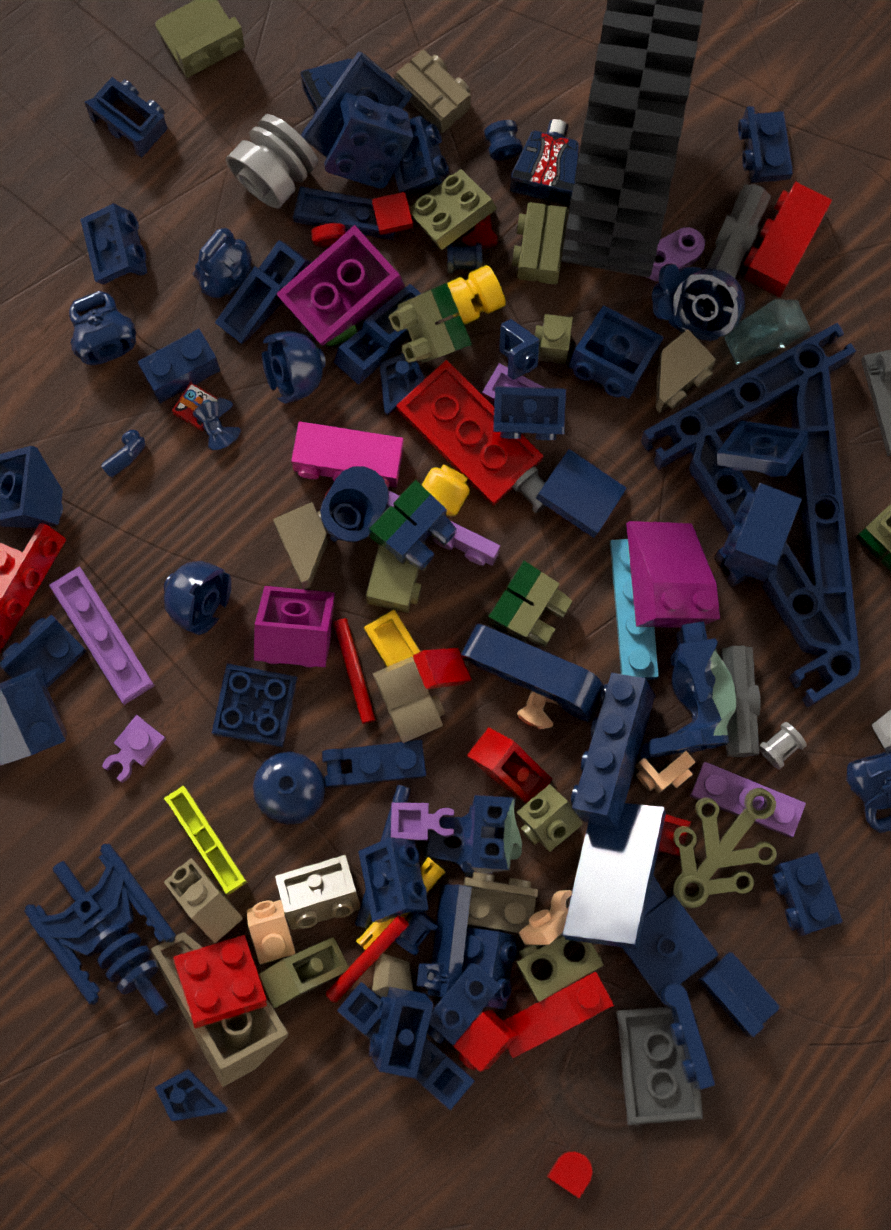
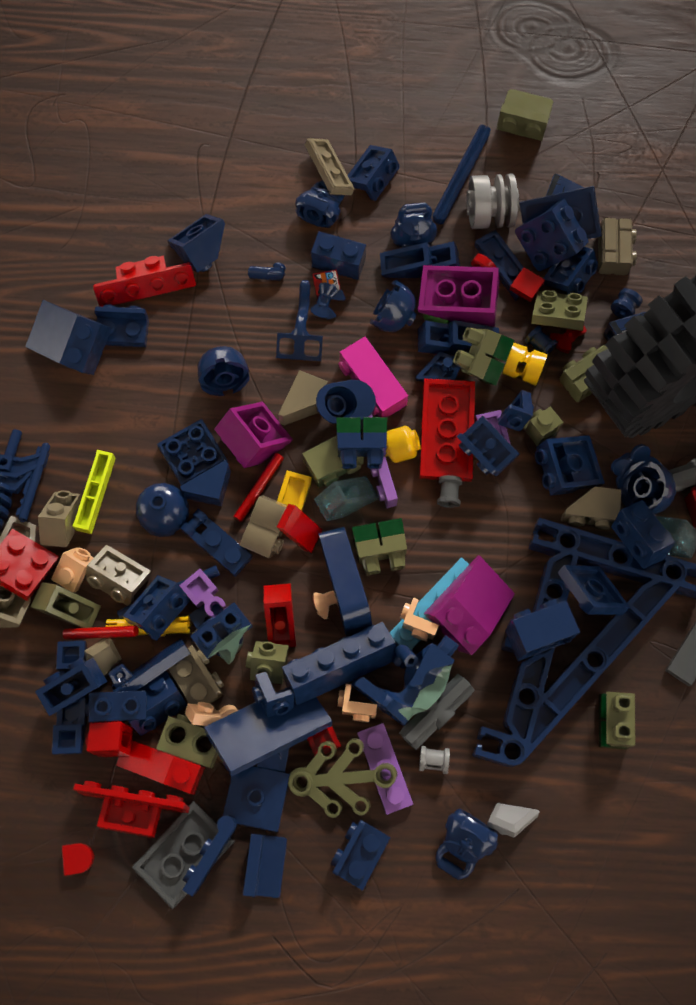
camera: 50 degrees right, 5 degrees down
(67, 283) = (329, 167): none -> dark tan tile
(101, 635) = (160, 346): medium lavender tile -> none
(137, 744) = (117, 413): medium lavender plate -> none
(142, 137) = (450, 134): dark blue window -> none
(203, 158) = (461, 174): none -> dark blue axle
(229, 482) = (300, 333): none -> dark blue piece
(310, 719) = (209, 486): none -> dark blue slope
(419, 927) = (139, 646): dark blue bush -> none
(448, 595) = (345, 497): none -> clear light blue slope
(574, 1081) = (128, 811): none -> red bracket
(581, 493) = (471, 516): dark blue slope -> none
(588, 848) = (271, 702): none -> dark blue bracket
(650, 642) = (420, 627): none -> light nougat bracket
(665, 681) = (404, 657): none -> dark blue arm
(674, 252) = (659, 446): medium lavender plate -> none
(752, 351) = (643, 534): none -> dark blue brick

